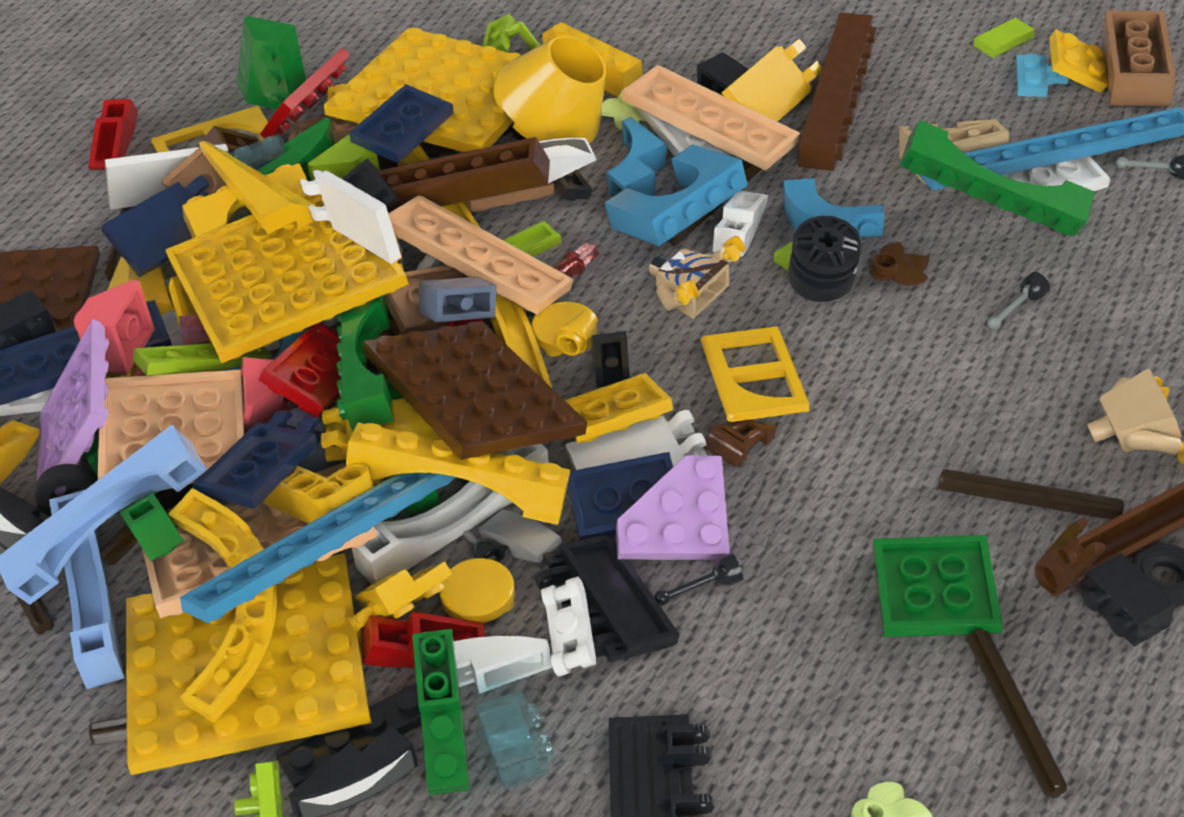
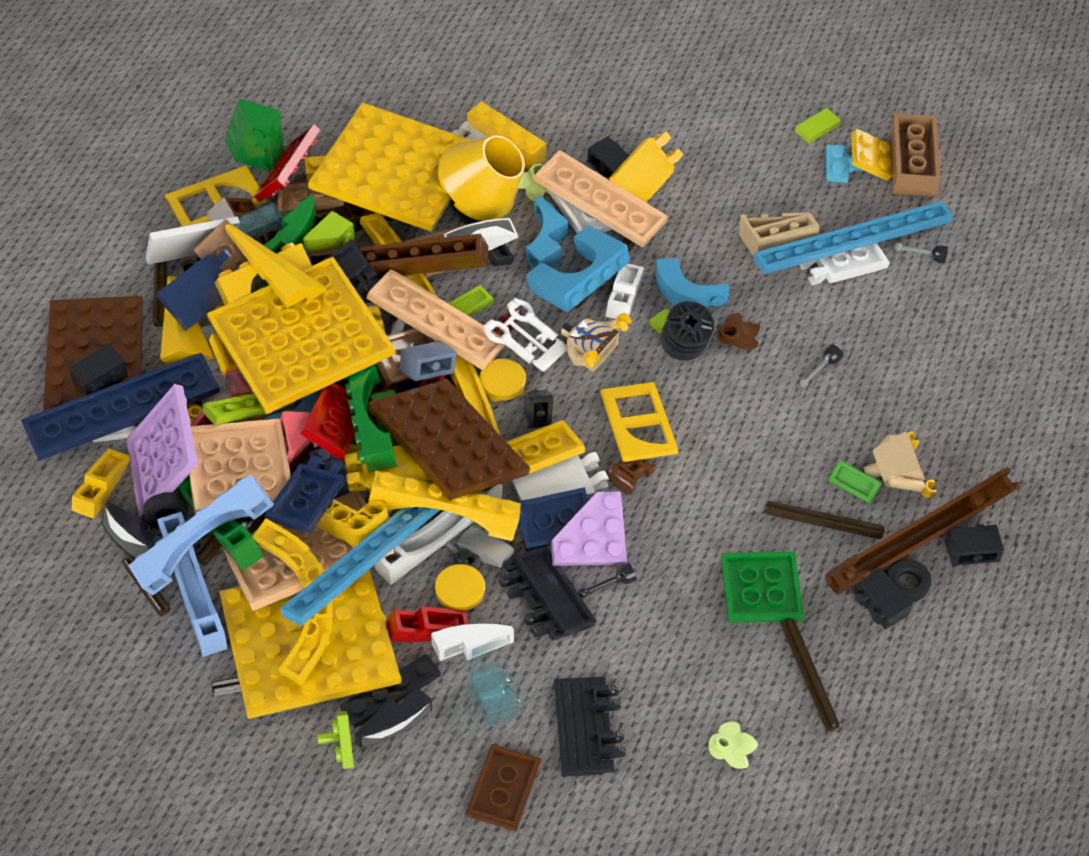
camera: 10 degrees left, 10 degrees up
(112, 132) = (135, 191): red slope -> none
(125, 322) = (189, 374): coral slope -> none
(353, 214) = (353, 299): white tile -> none
(394, 593) = (409, 592): yellow plate -> none
(401, 123) = (373, 206): dark blue plate -> none
(441, 712) = (447, 676): green slope -> none
(503, 29) = (431, 105): lime plate -> none
(569, 627) = (525, 617): white plate -> none
(576, 334) = (514, 389): yellow cone -> none
(623, 304) = (549, 355): none -> white piece
(837, 92) = (693, 173): reddish brown brick -> none
(936, 157) = (765, 251): green arch -> none
(1075, 443) = (855, 481): none -> bright green tile

